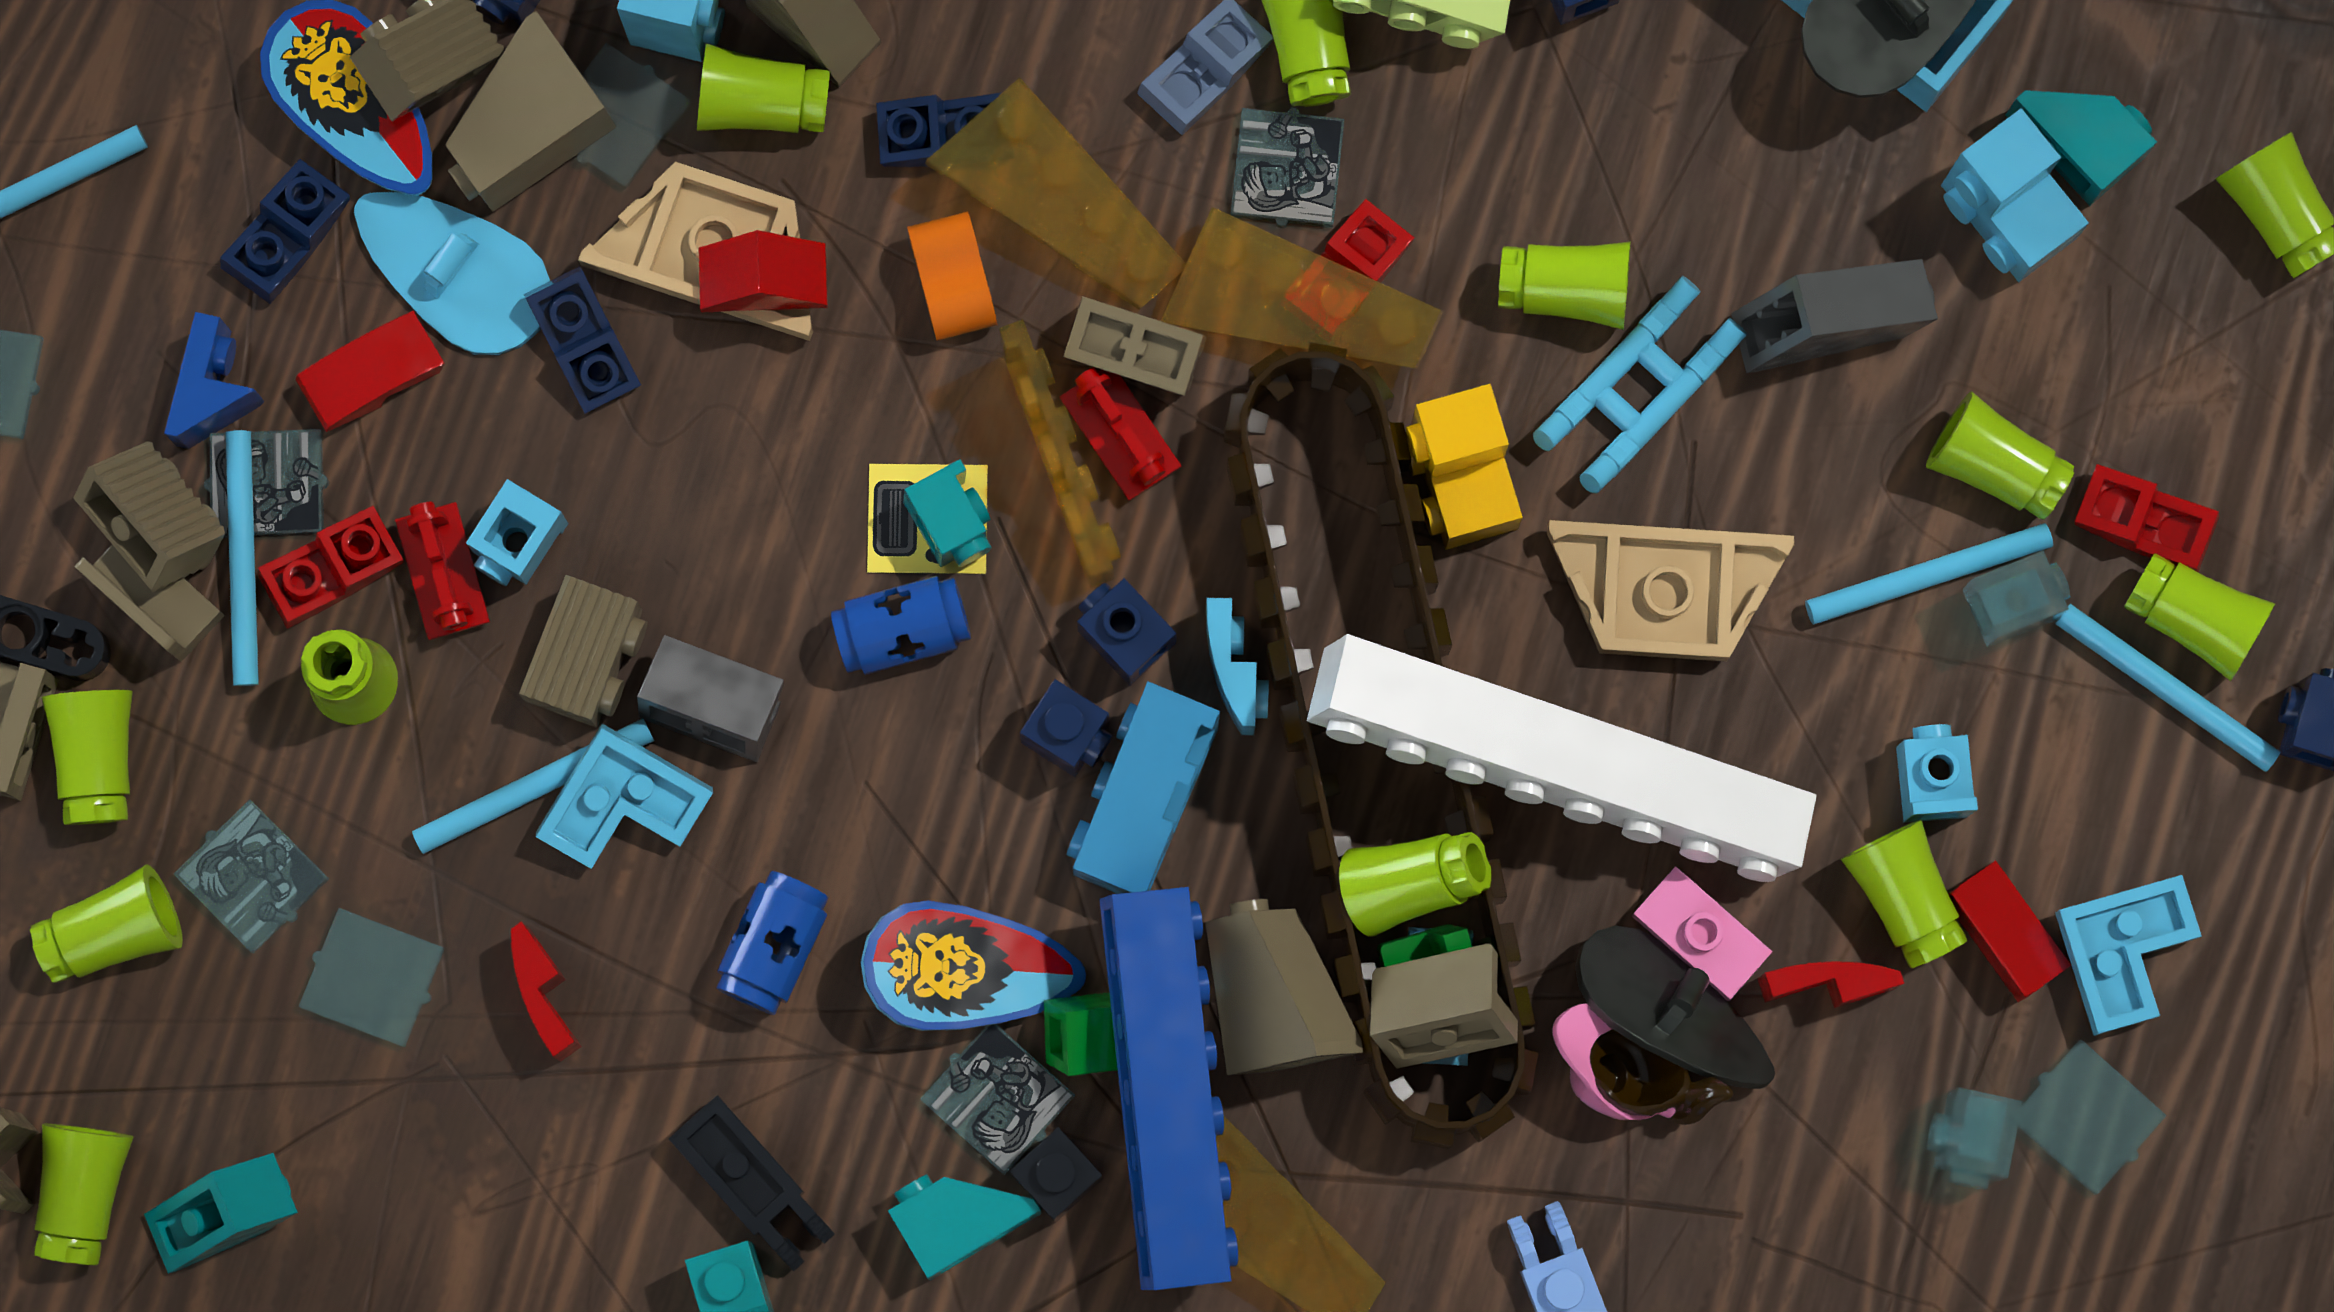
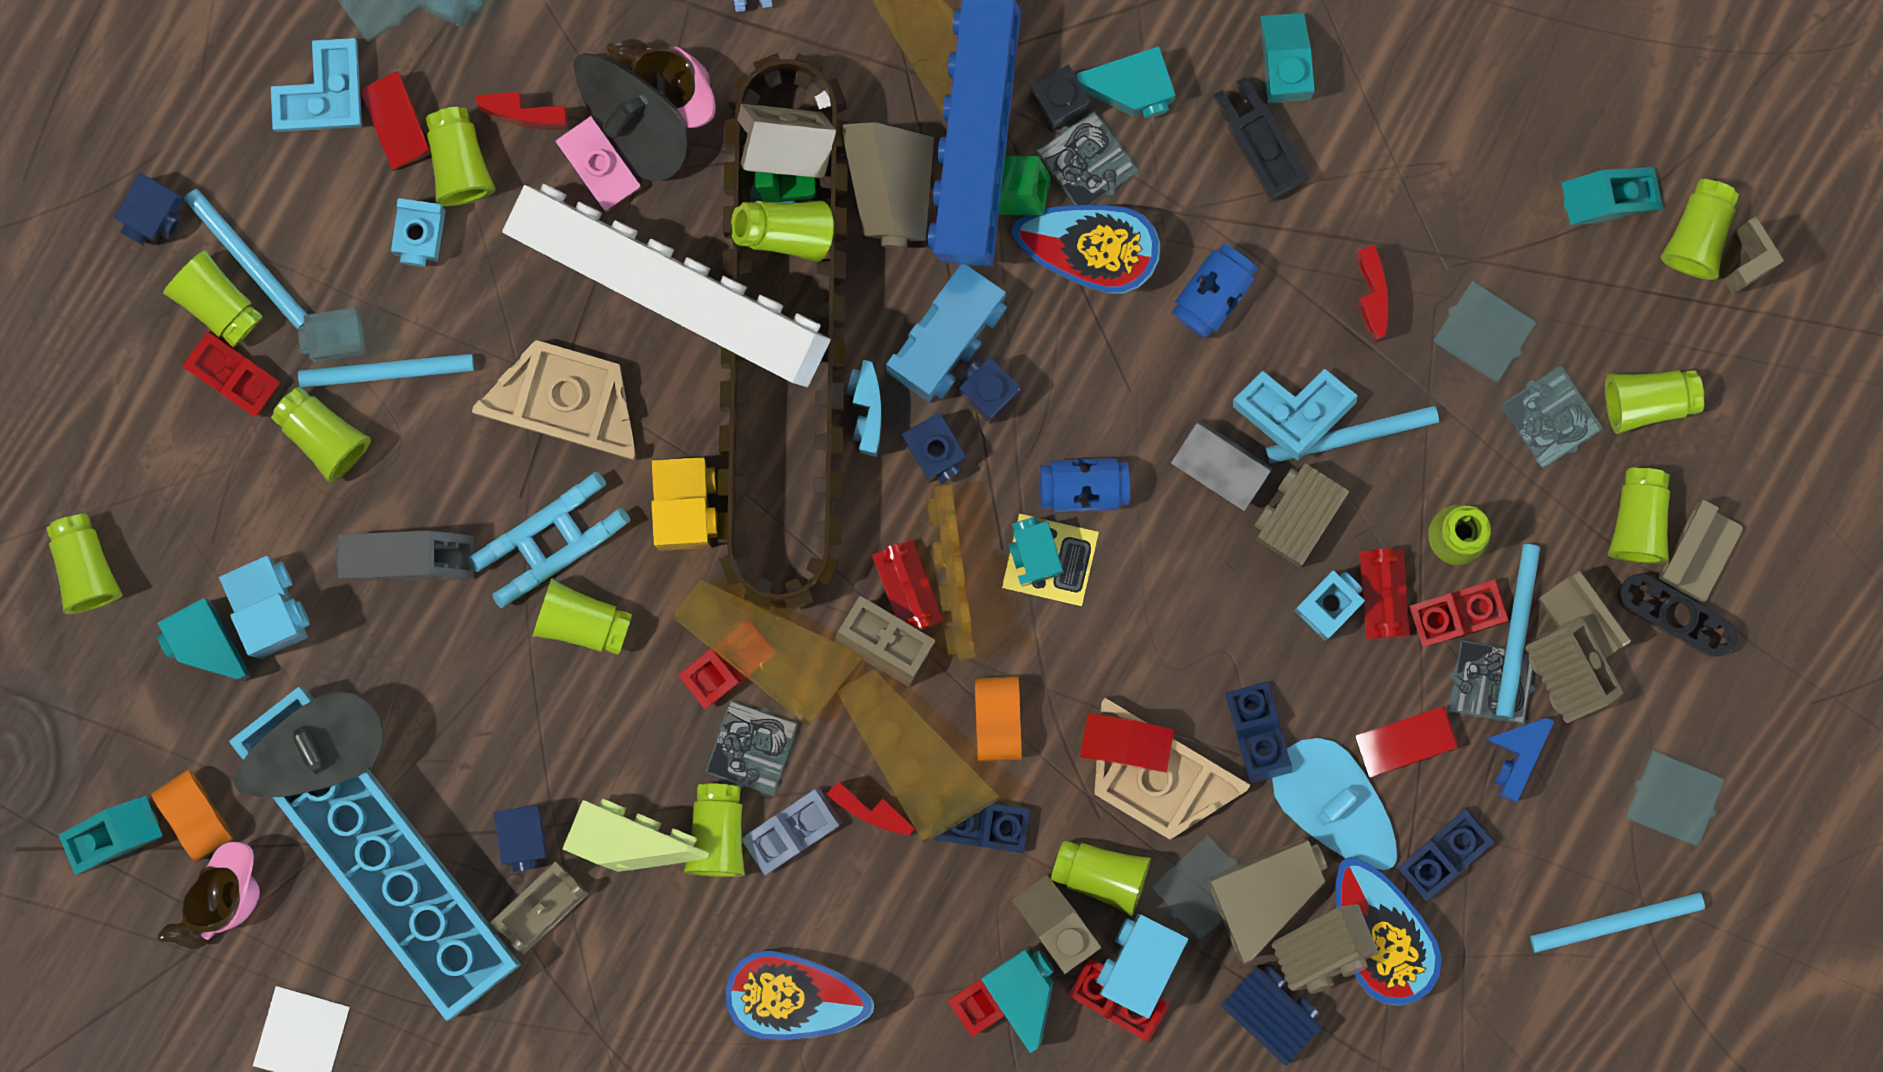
camera: 165 degrees left, 5 degrees up
(1085, 105) = (881, 816): none -> red slope

